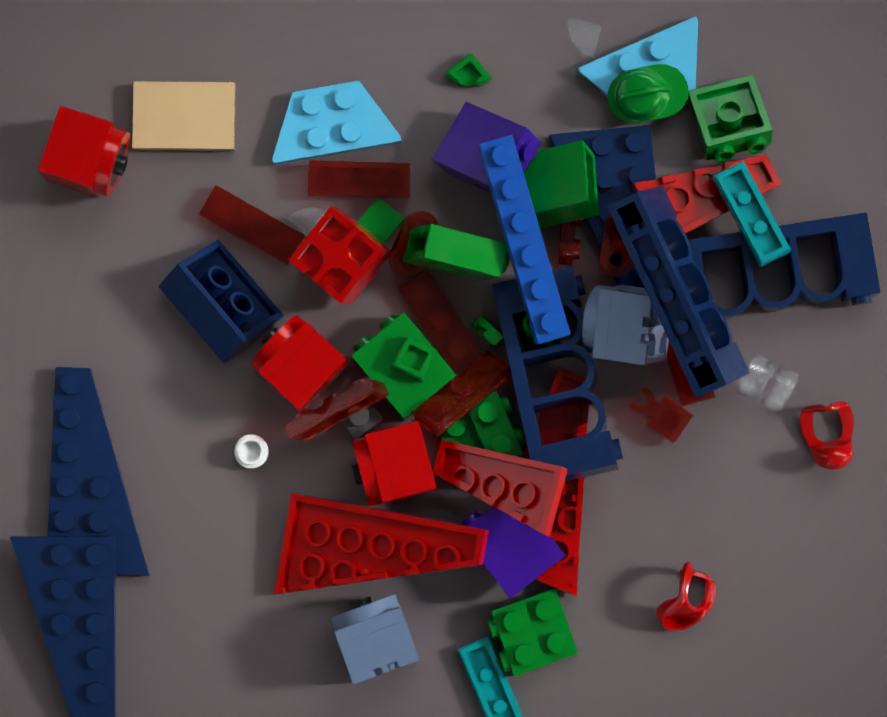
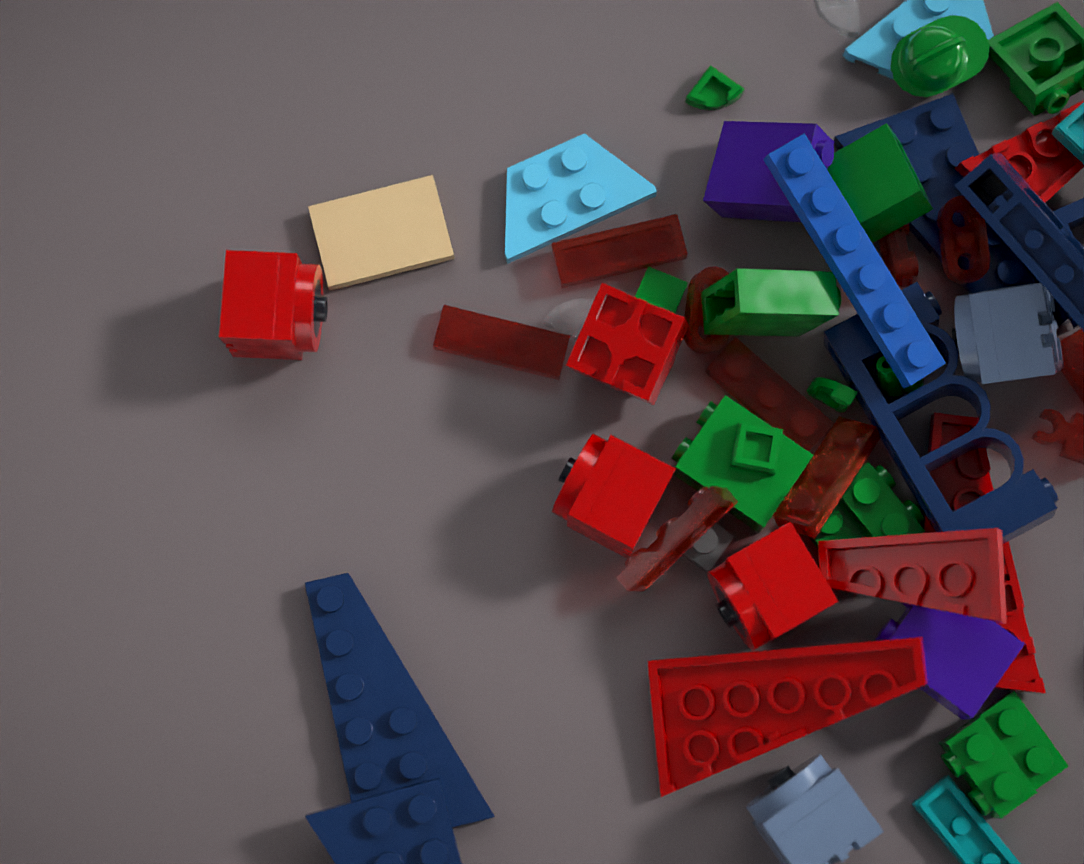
camera: 10 degrees left, 5 degrees down
(220, 300) = (489, 444): dark blue slope -> none
(251, 451) = (580, 622): white plate -> none

